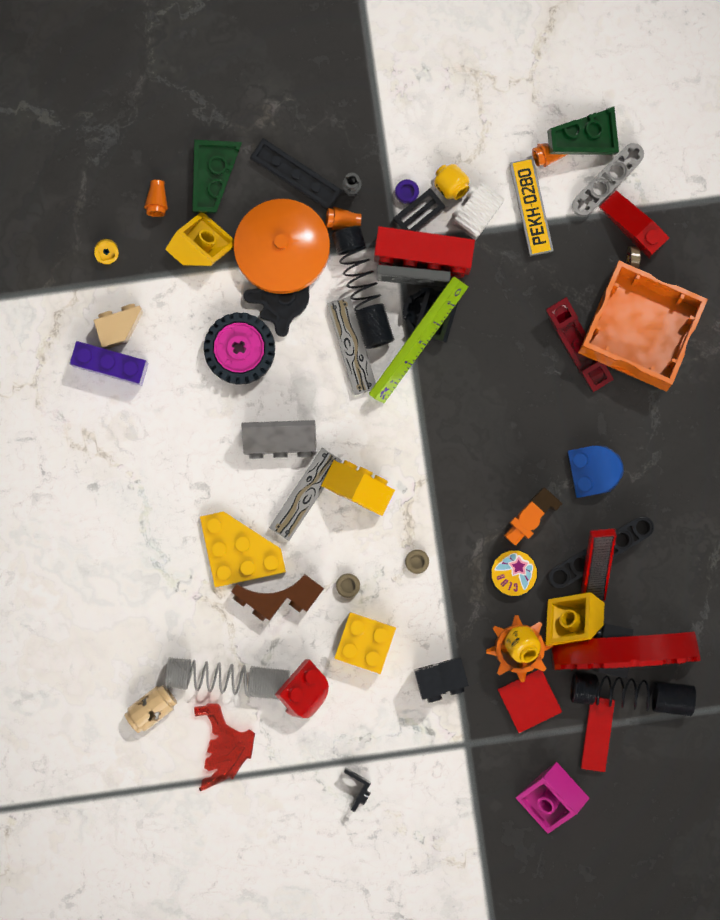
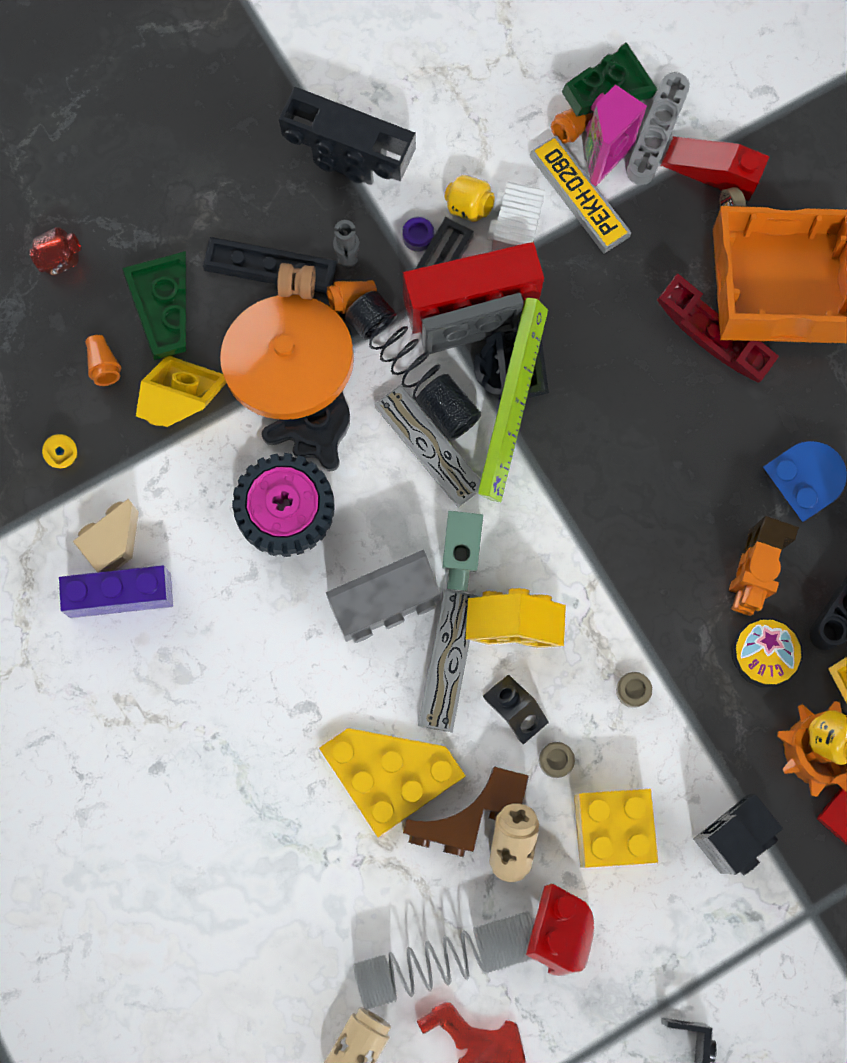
camera: 25 degrees left, 10 degrees down
(153, 107) = (55, 251): none -> clear red head
(297, 625) = (514, 842): none -> tan piece
(308, 197) = (299, 278): none -> medium nougat wheel
(335, 540) = (514, 706): none -> black bracket
(348, 416) = (462, 531): none -> sand green torso
(382, 108) = (347, 138): none -> black piece
(568, 175) = (611, 131): none -> dark pink slope

